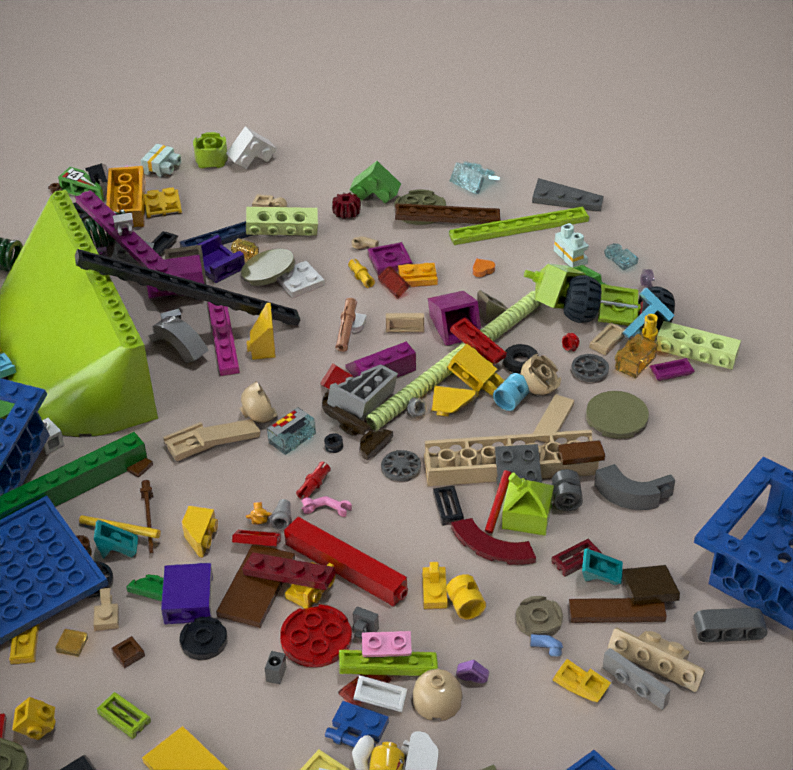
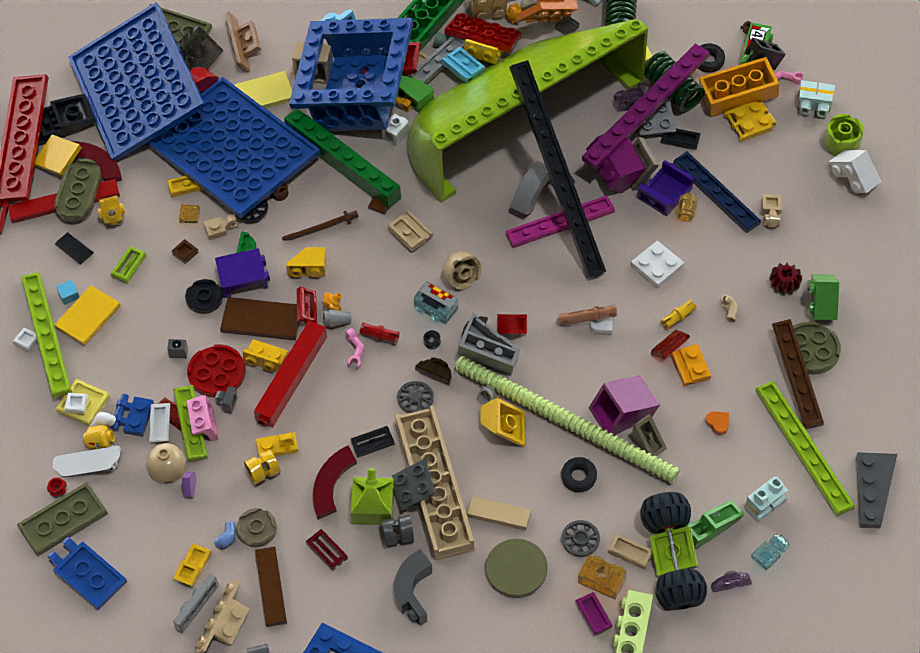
camera: 80 degrees right, 15 degrees up
(113, 538) = (285, 208): teal slope -> none
(123, 221) = (653, 92): white tile -> none
(138, 530) = (304, 209): yellow bar -> none
(227, 433) = (421, 255): tan tile -> none
(262, 336) = (555, 252): yellow slope -> none
(268, 266) = (661, 232): tile -> none
(281, 221) = (729, 200): yellowish green brick -> none
(289, 571) = (265, 333): dark red plate -> none
(349, 423) = (453, 344): dark brown plate -> none
(389, 255) = (712, 335): magenta tile -> none
(397, 358) = (542, 356): magenta slope -> none
(404, 322) = (605, 363): tan tile -> none
(471, 176) = (882, 388): clear light blue bracket -> none
(475, 370) = (541, 433): yellow hinge -> none
(478, 340) = (580, 428): red tile -> none
(496, 507) = (393, 474): red bar -> none
(511, 392) = (520, 469): medium azure wheel -> none
(540, 375) = (543, 489): tan cylinder -> none
(552, 283) = (682, 479): lime piece -> none
(570, 342) = (613, 515): red plate -> none
(581, 452) = (436, 532): reddish brown tile -> none
(601, 567) = (304, 560): teal slope -> none
(650, 330) = (630, 580): yellow pin -> none
(650, 585) = (298, 608): dark brown tile -> none
(655, 305) = (655, 577): medium azure bracket -> none

